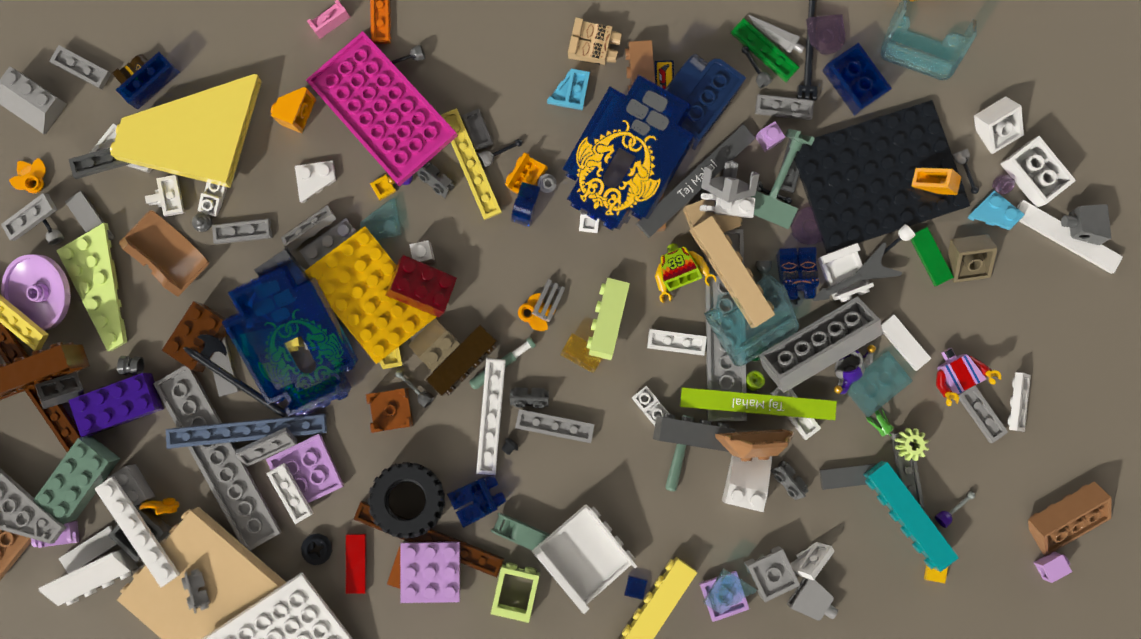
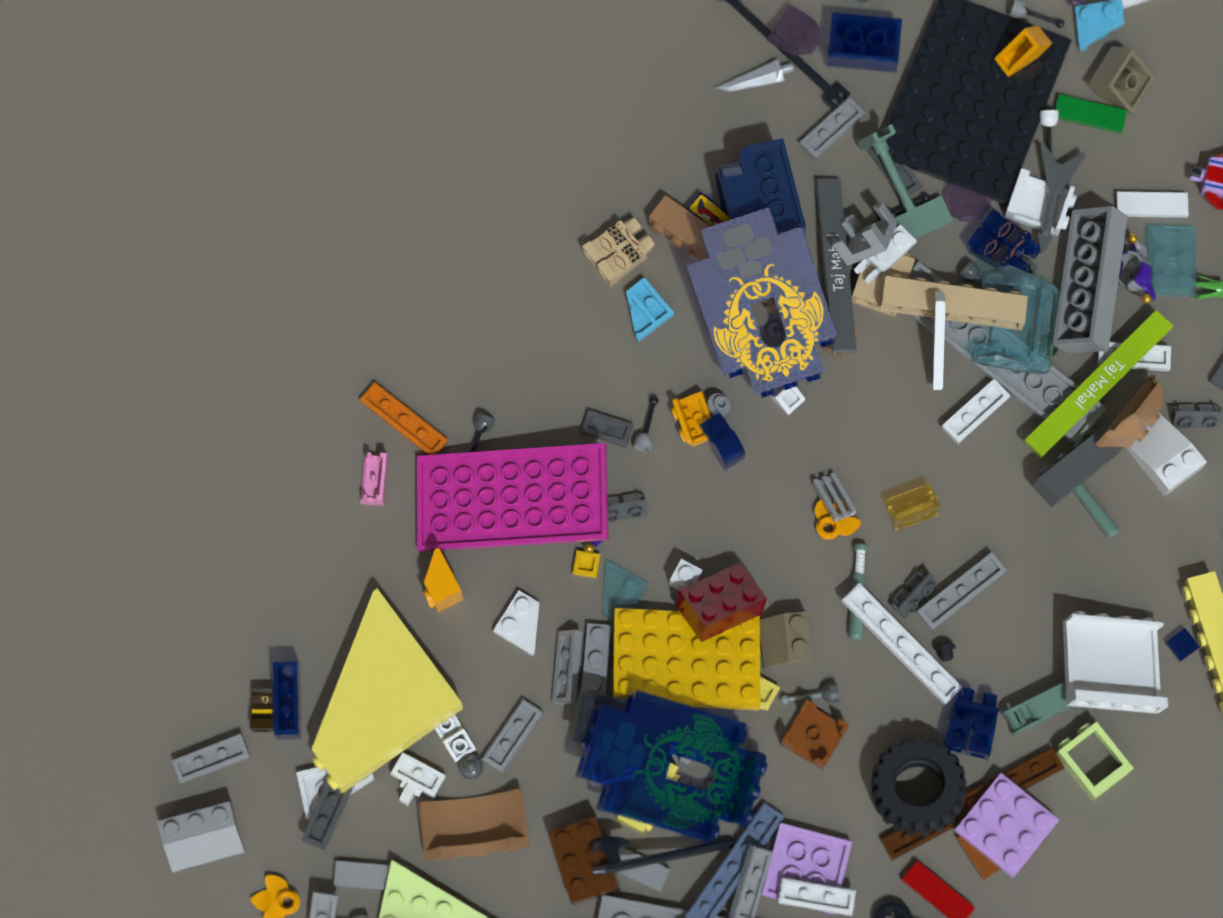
camera: 45 degrees left, 10 degrees down
(461, 360) = (824, 626): dark brown brick -> none
(472, 167) = (647, 464): light yellow plate -> none
(609, 318) = (900, 453): yellowish green brick -> none
(649, 404) = (1015, 487): white slope -> none
(679, 269) = (908, 350): torso -> none
(698, 283) = (938, 345): none -> white tile
(755, 380) = (1074, 369): lime tile -> none
(763, 78) = (787, 125): hinge -> none
(764, 50) = (761, 101): green tile -> none
(770, 136) = (850, 164): lavender brick -> none

